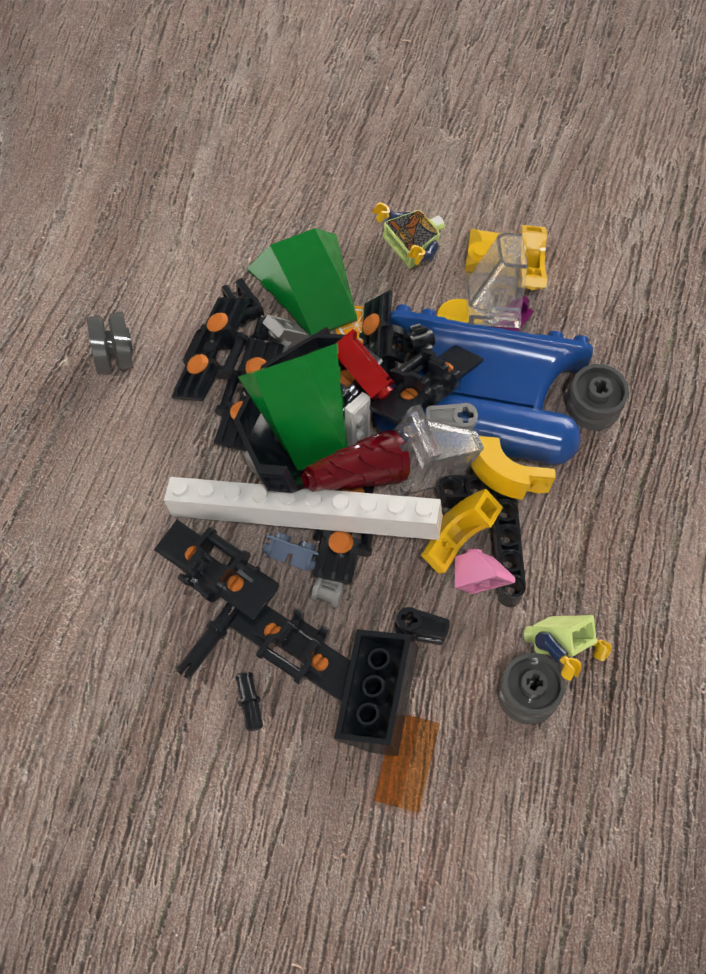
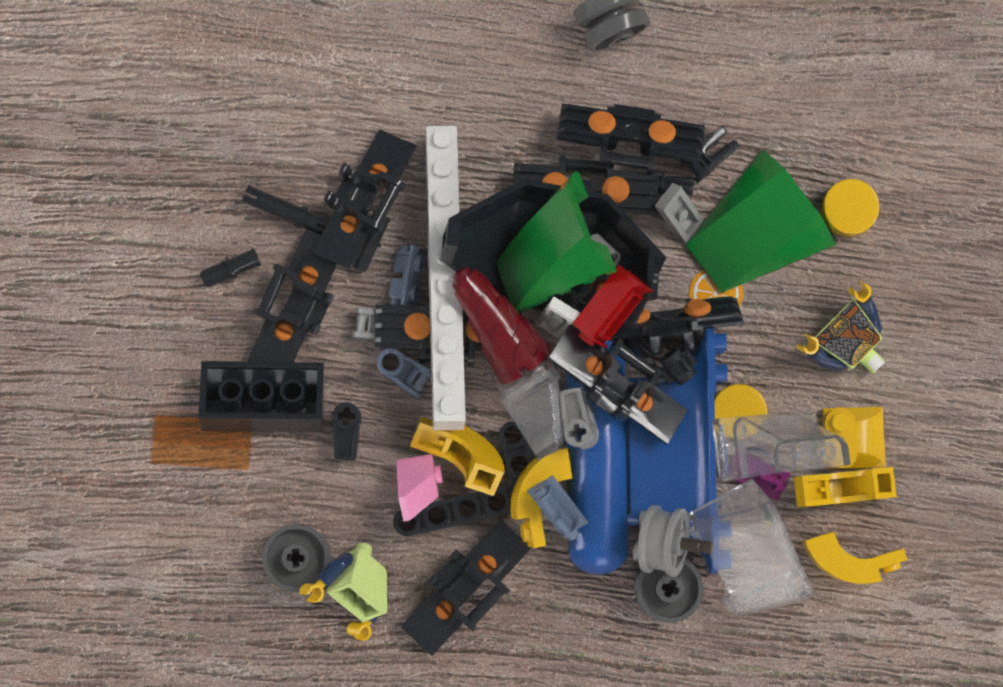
camera: 80 degrees right, 20 degrees up
(309, 212) = (850, 207): none -> yellow head
(379, 565) = (405, 373): none -> sand blue piece
(525, 449) = (558, 507): none -> sand blue hinge
(565, 372) = (665, 541): none -> light grey wheel
(569, 560) = (454, 584): none -> black piece
(578, 313) = (751, 551): none -> clear windscreen
(586, 281) = (838, 564): none -> yellow arch

